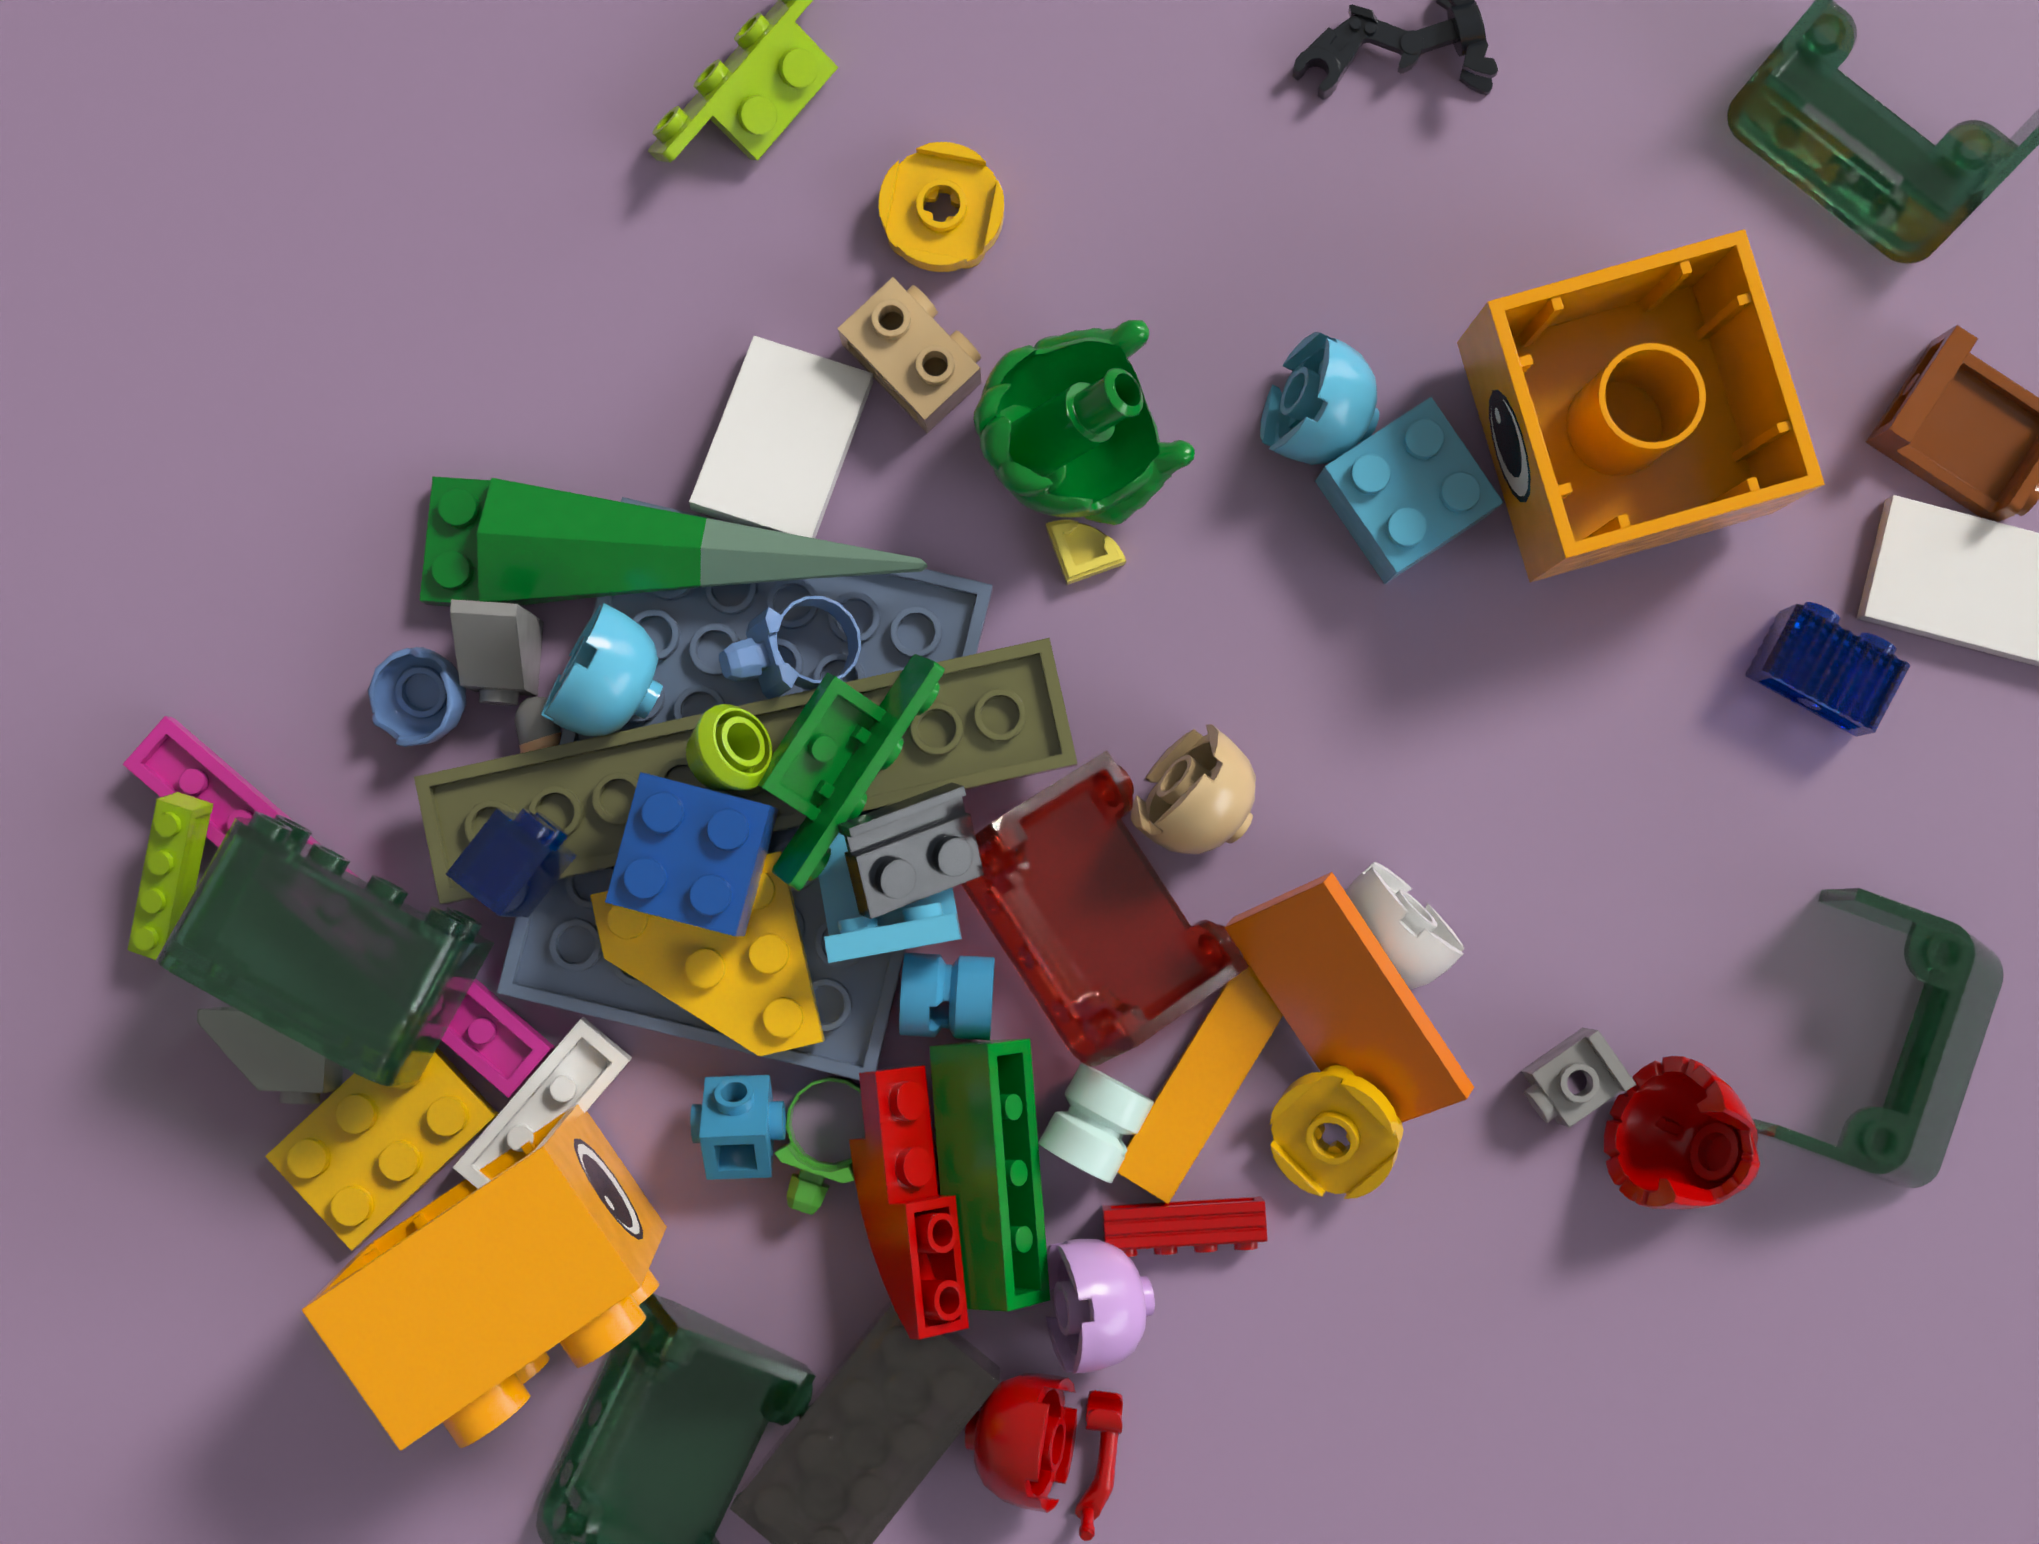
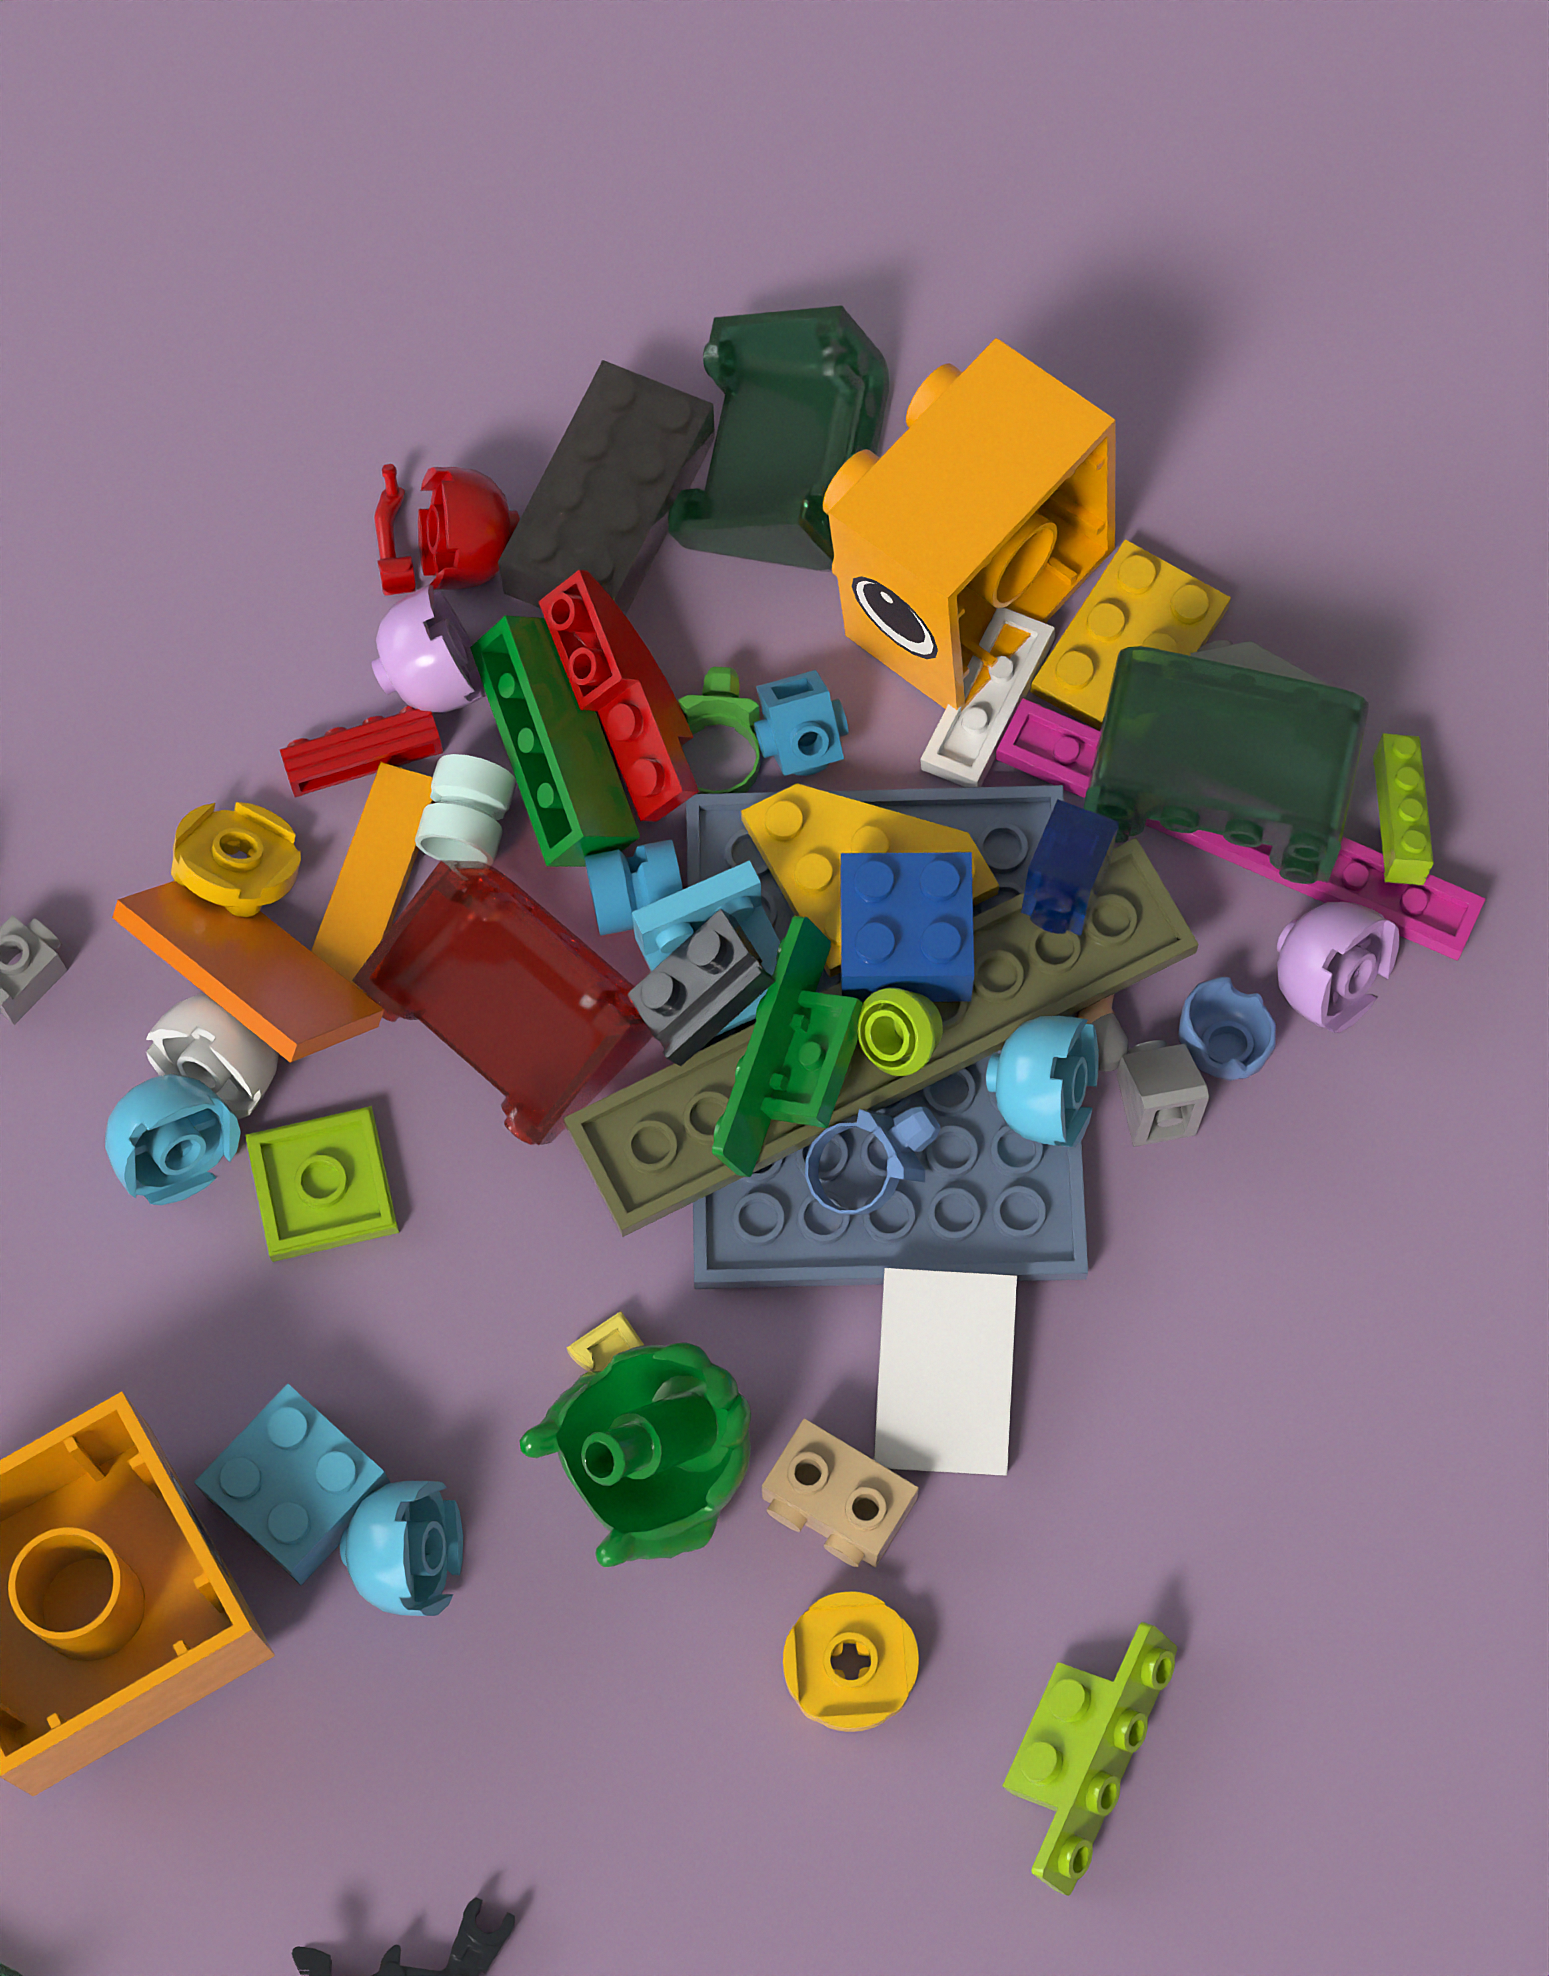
camera: 170 degrees right, 15 degrees down
(292, 738) = (1333, 960): none -> lavender cylinder
(555, 545) = (1157, 1205): green plate -> none
(1199, 794) = (440, 1128): tan cylinder -> none
(1319, 783) = (321, 1184): none -> lime tile
(1460, 859) = (169, 1137): none -> medium azure cylinder

